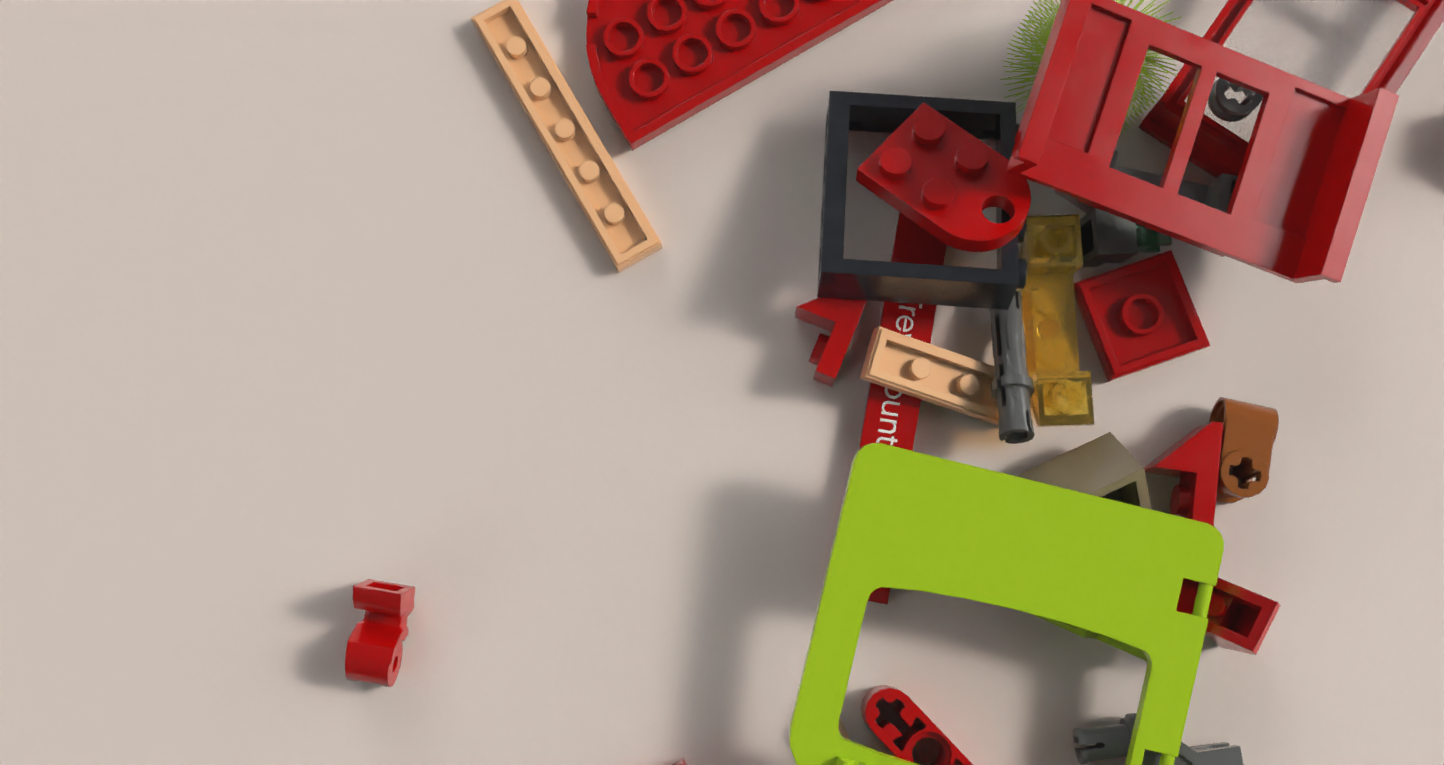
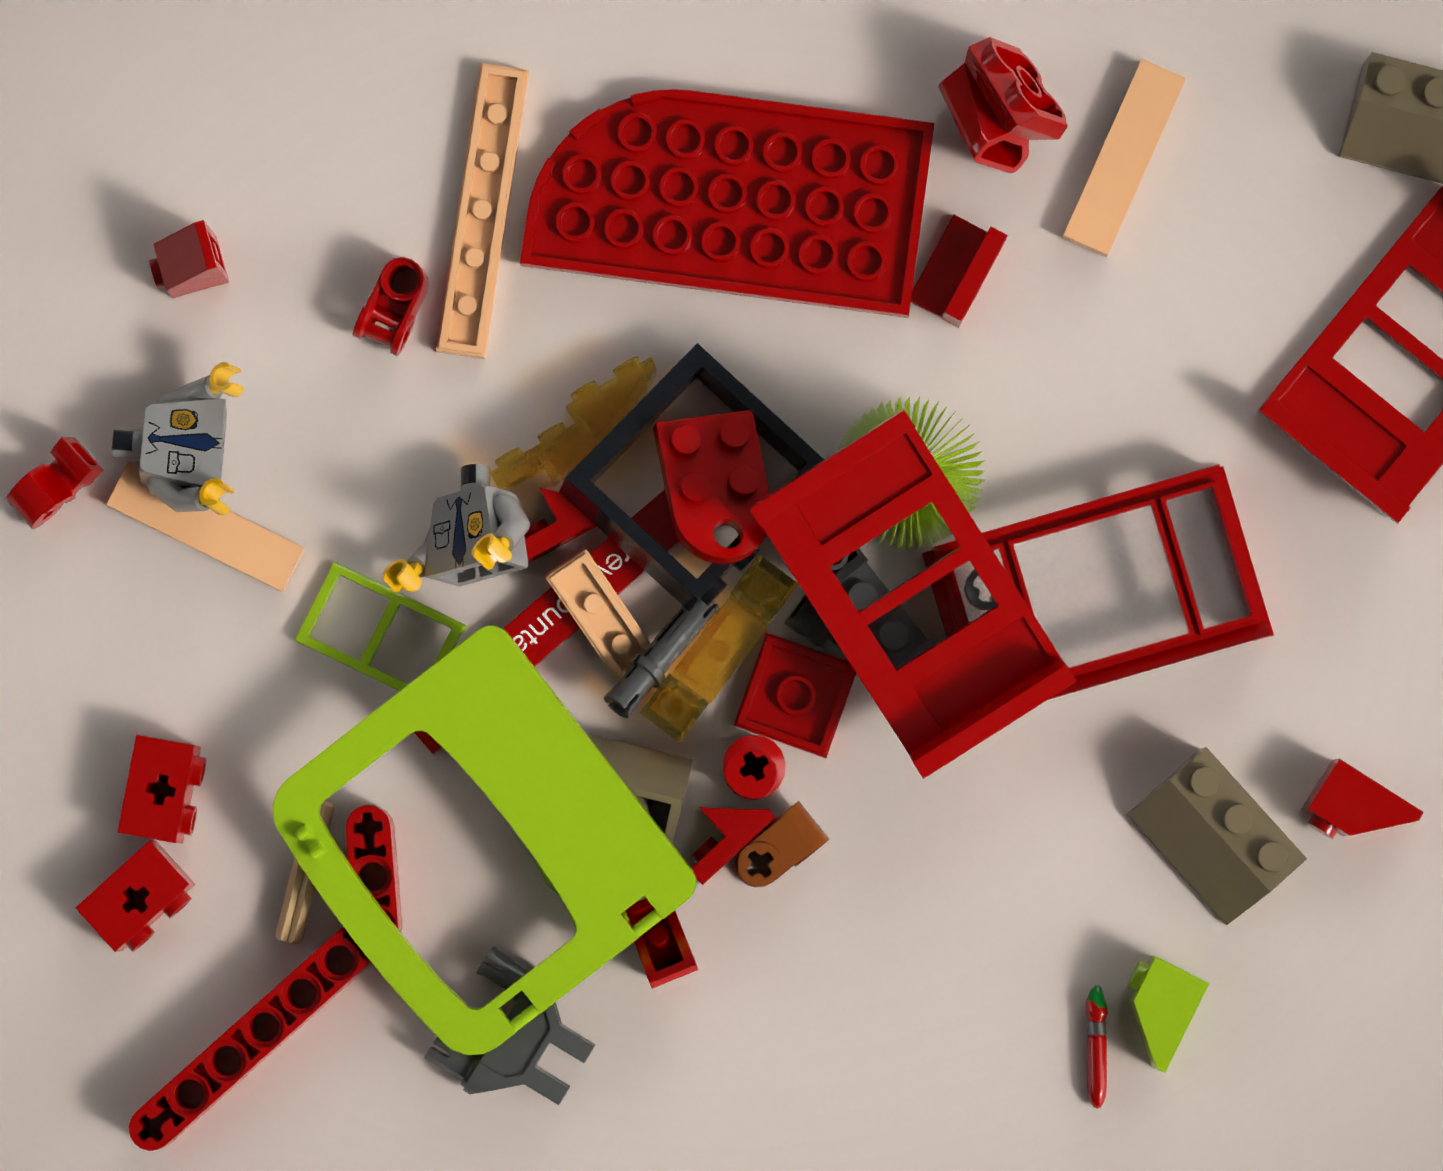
camera: 35 degrees right, 5 degrees up
(350, 352) = (188, 261): none -> red slope
(466, 508) = (184, 443): none -> light grey torso
(539, 566) = (224, 538): none -> light nougat tile
(554, 266) = (392, 308): none -> red piece
(750, 498) = (396, 600): none -> lime window
(771, 394) = (469, 538): none -> light grey torso
(794, 222) = (594, 415): none -> clear yellow slope
(1172, 395) = (759, 748): none -> red piece

